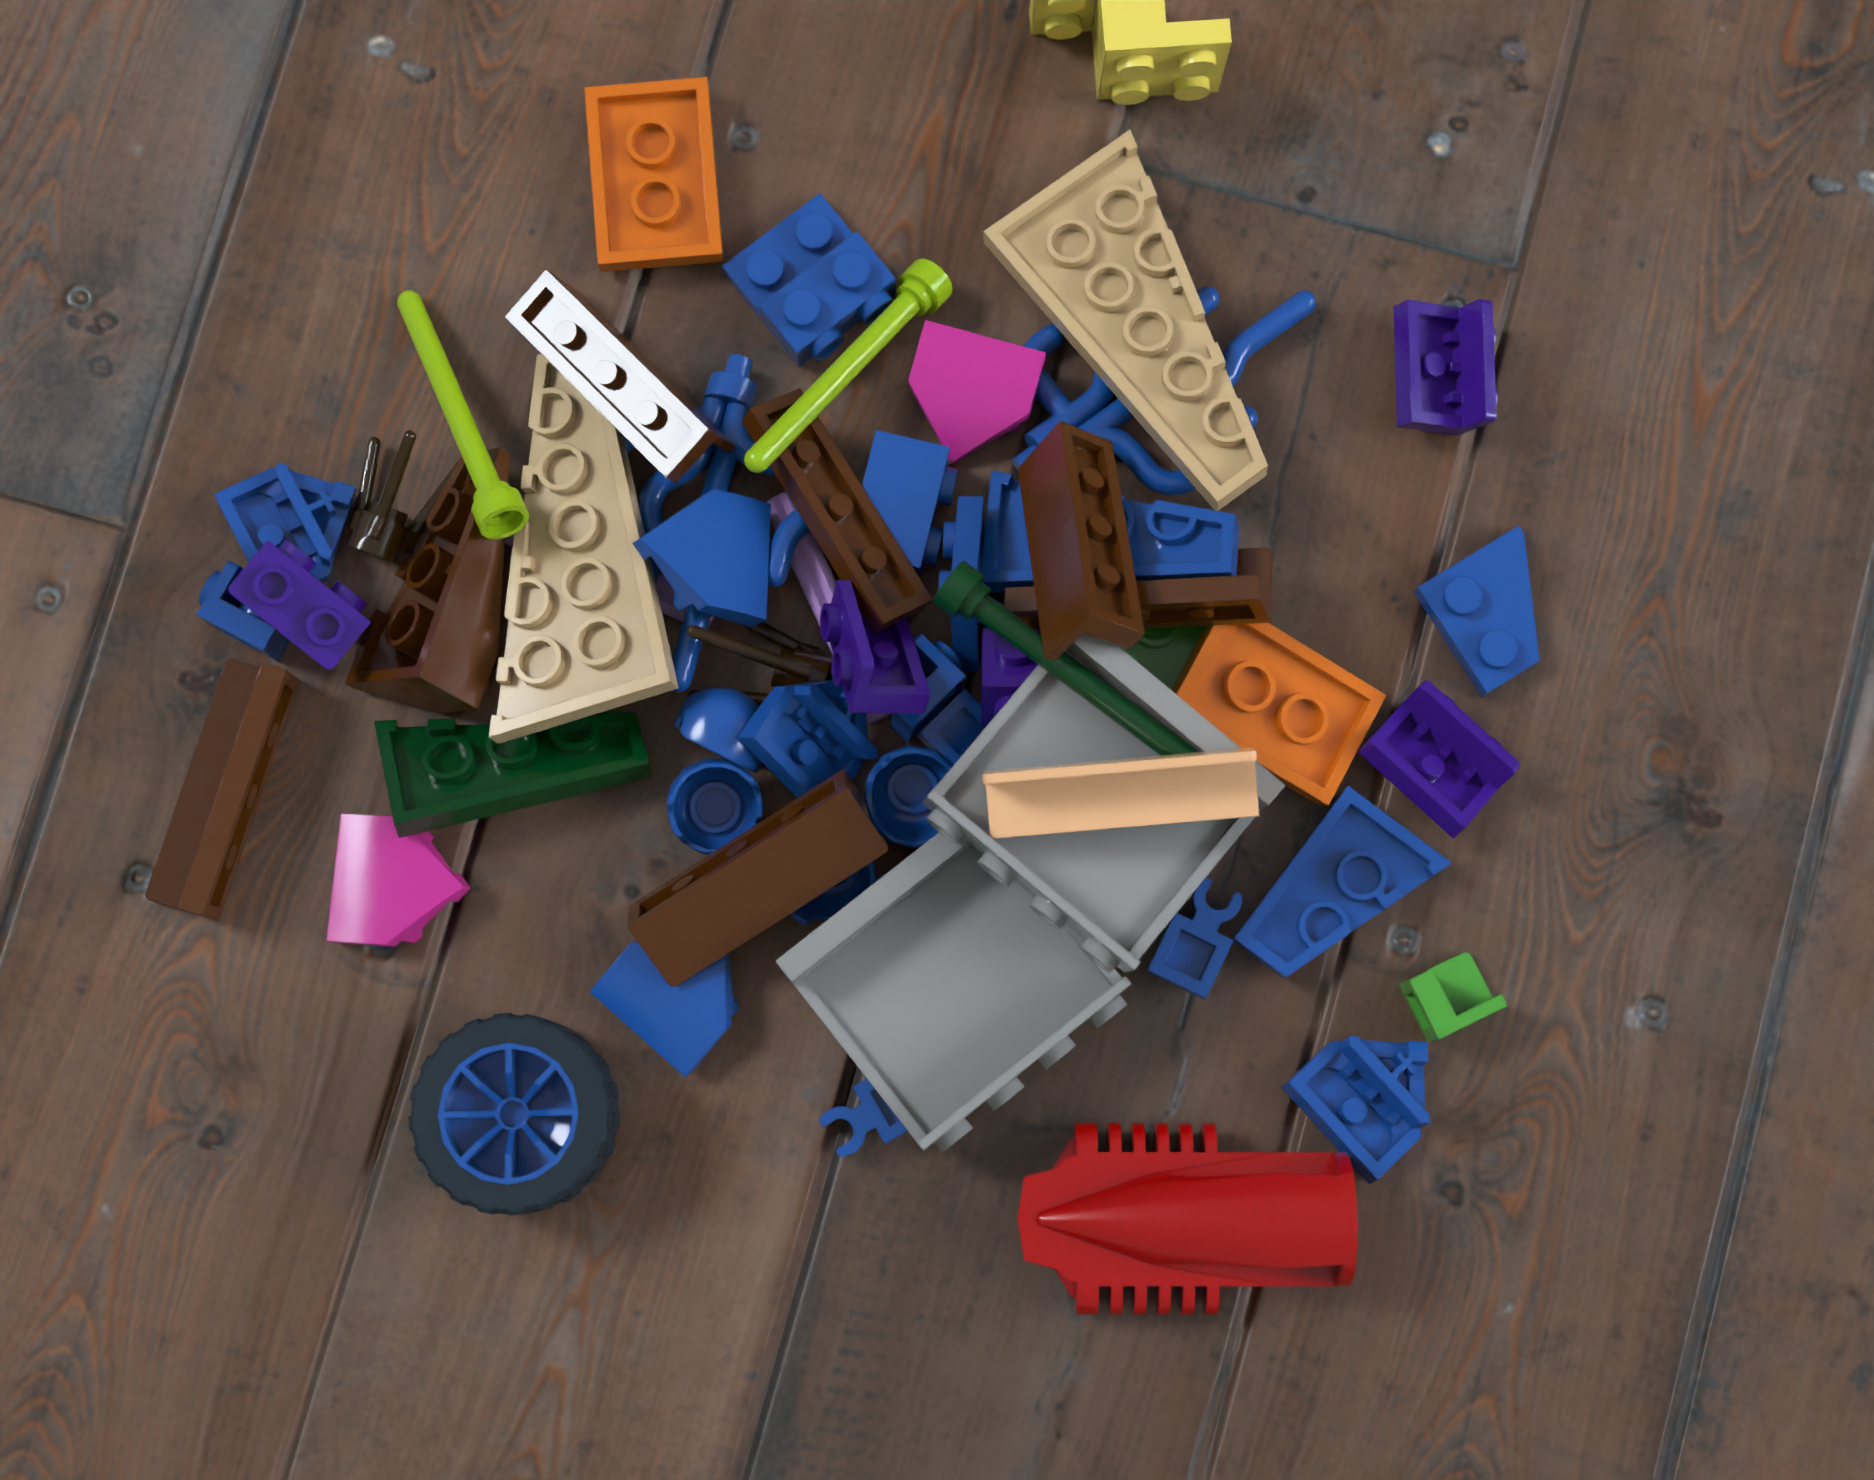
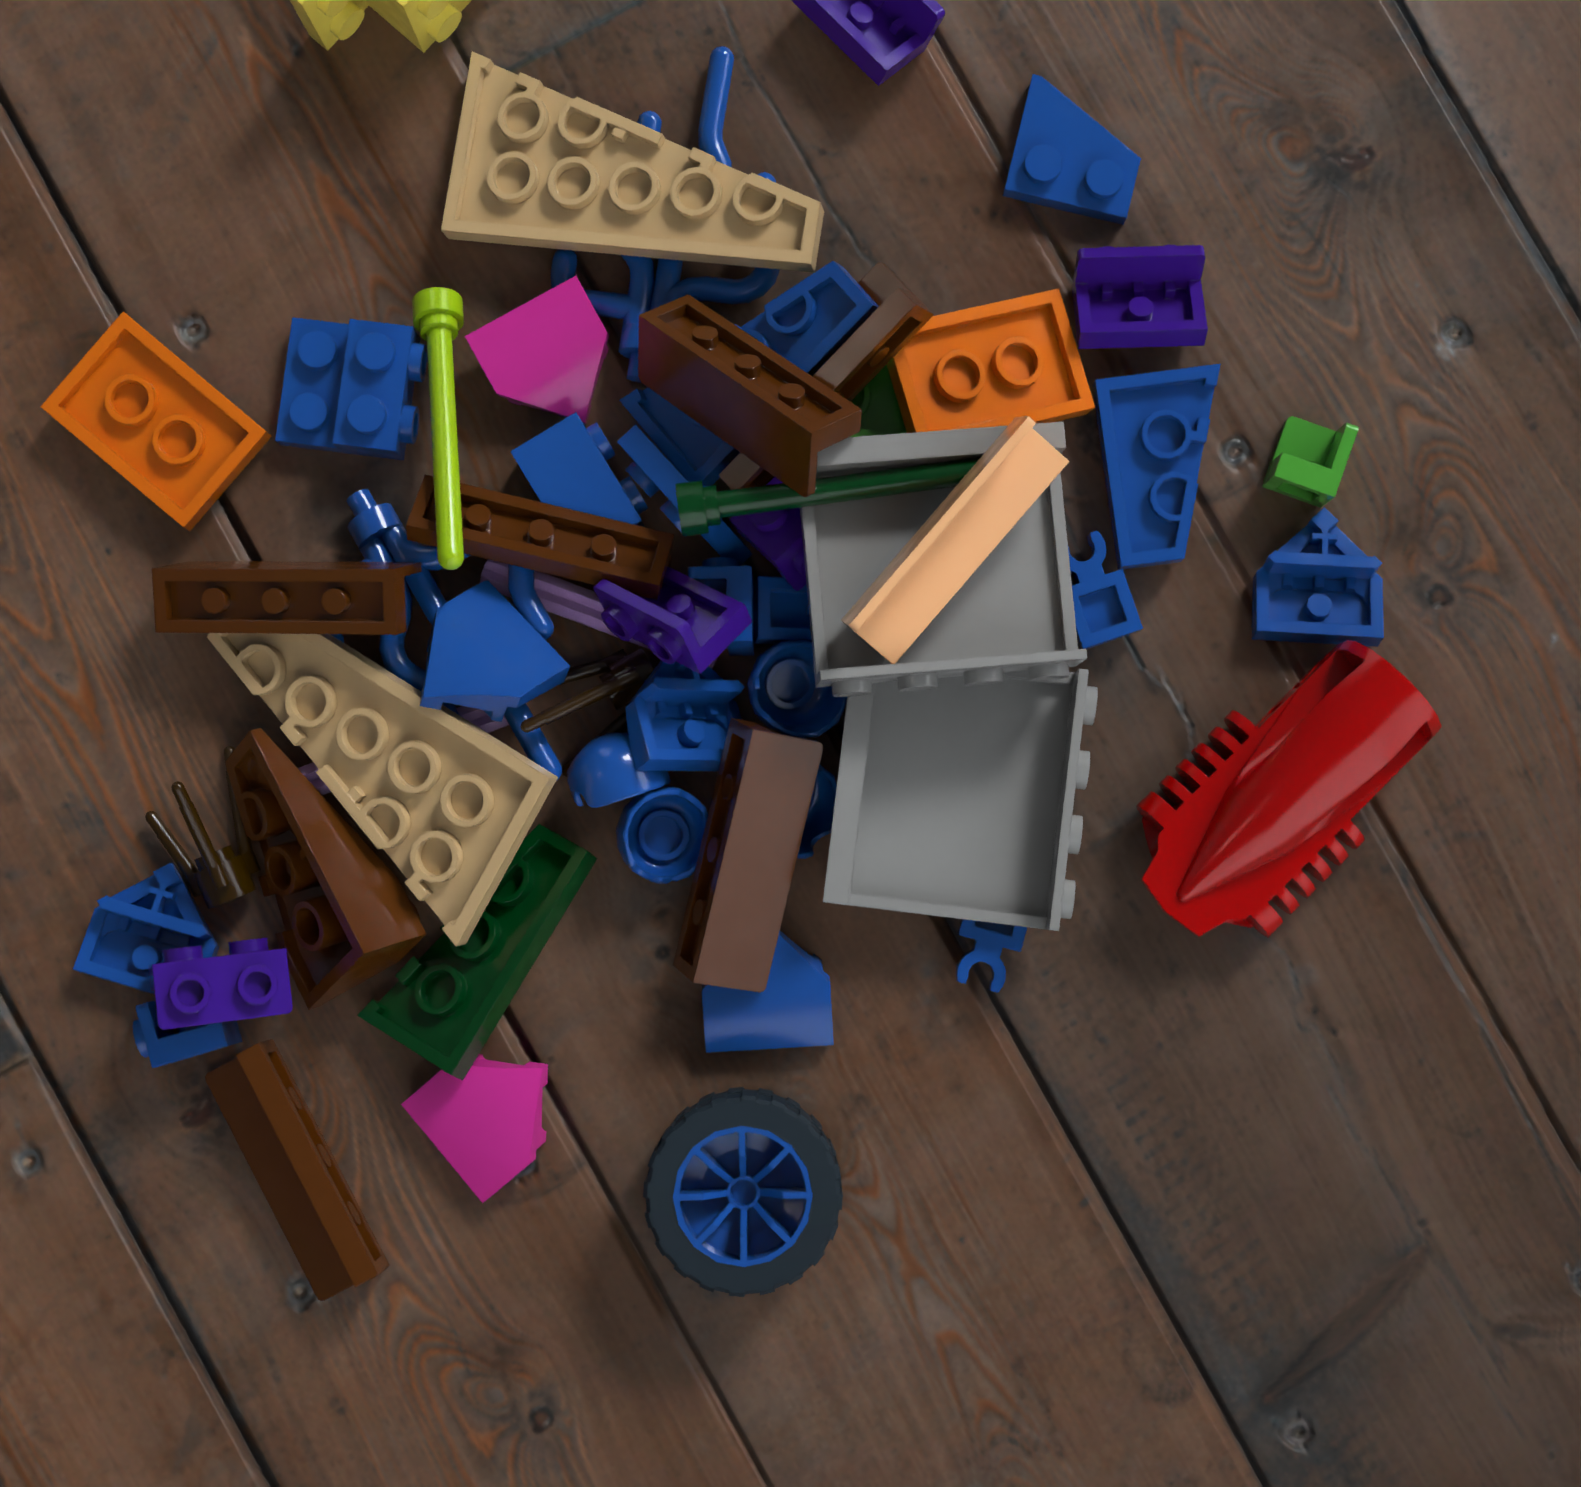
camera: 40 degrees left, 5 degrees up
(496, 505) = (293, 774): lime piece -> none

